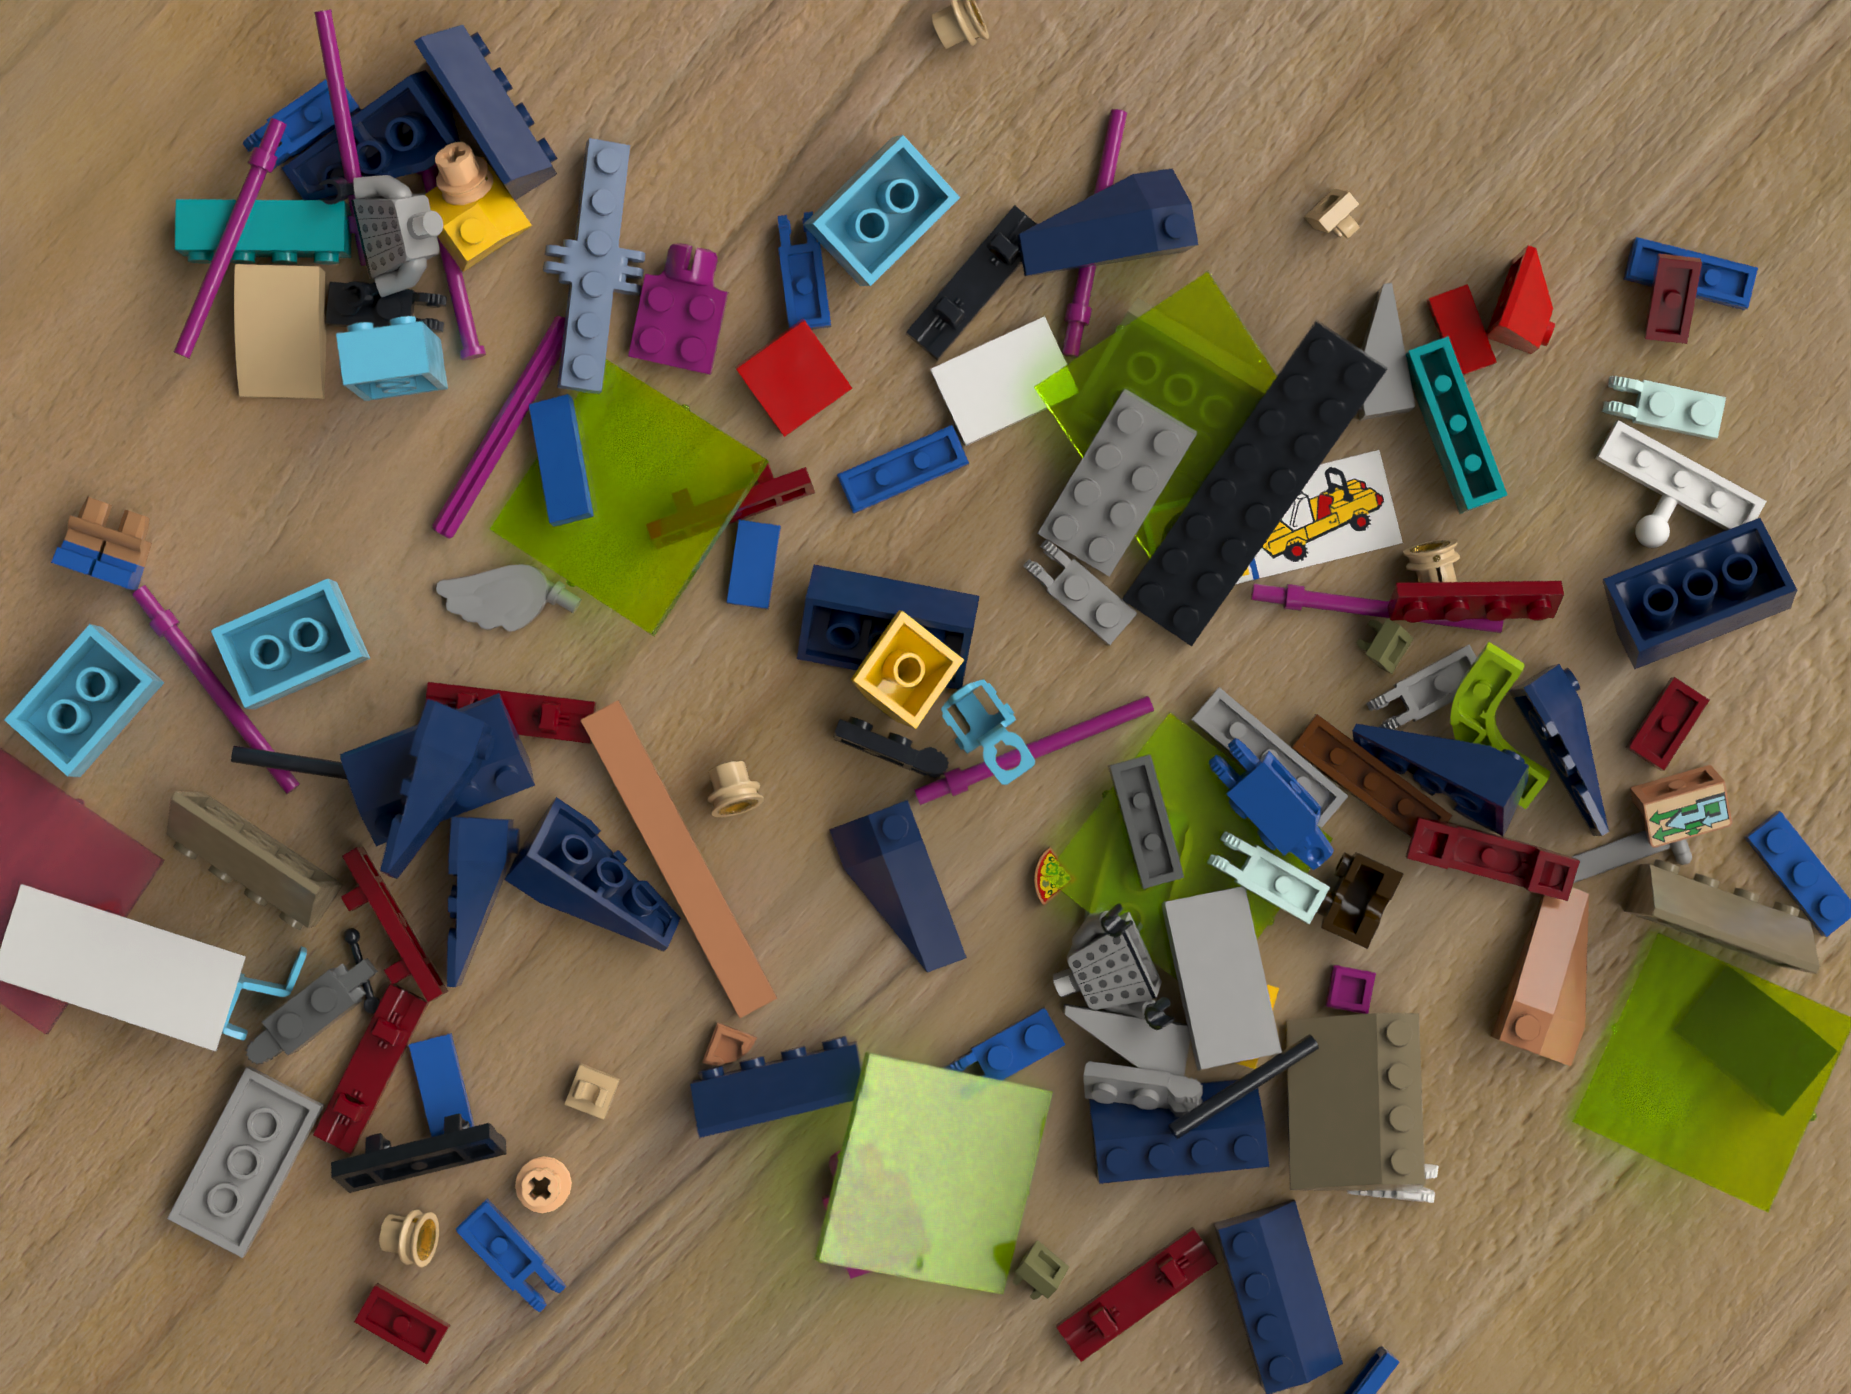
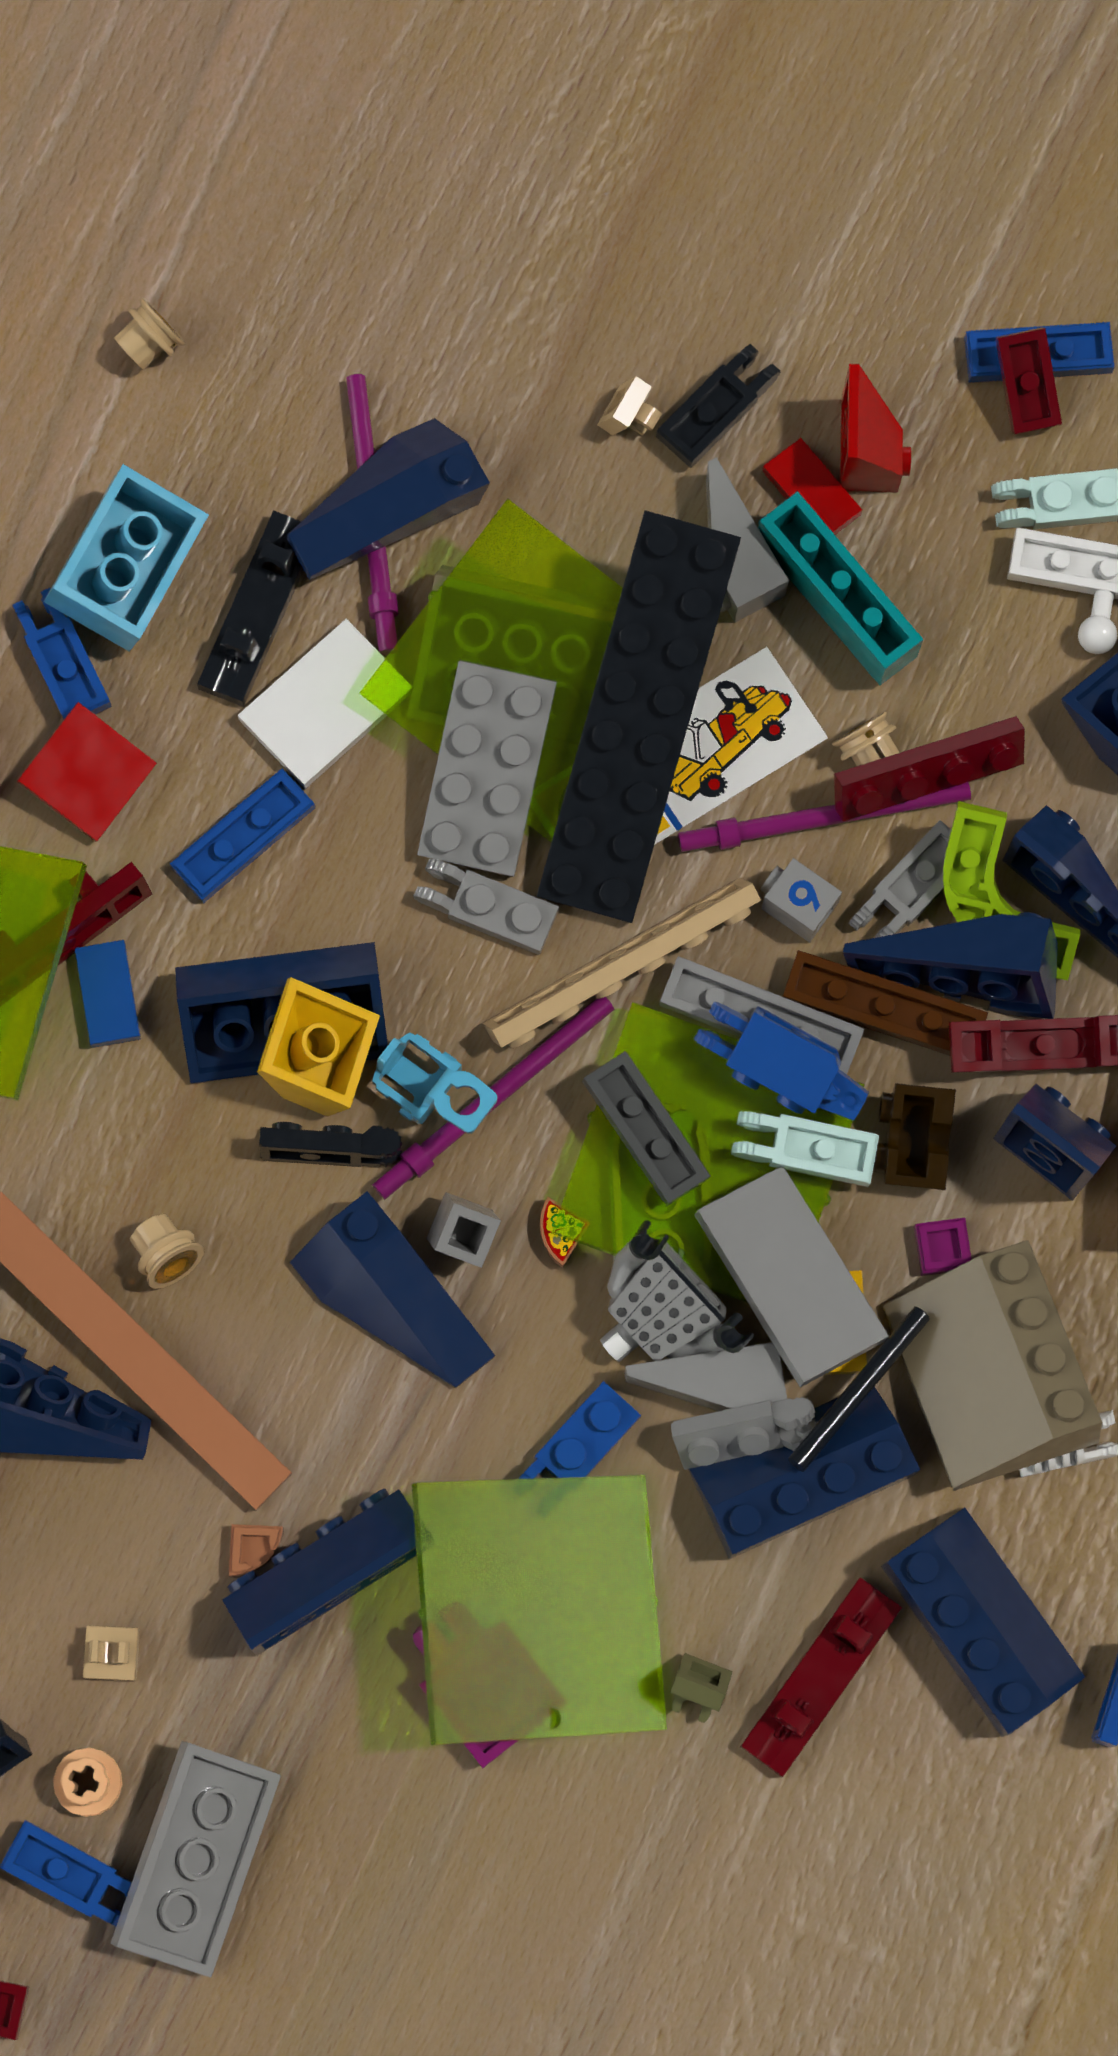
camera: 20 degrees left, 10 degrees down
(607, 1274) = (195, 1859): none -> light grey plate
(974, 853) = (463, 1229): none -> light grey brick
(1185, 674) = (639, 954): none -> tan plate
(1333, 671) = (799, 899): none -> light grey brick
(1388, 644) = (850, 850): olive tile -> none
(1405, 236) = (715, 408): none -> black hinge
(1470, 939) = (1055, 1140): none -> dark blue slope

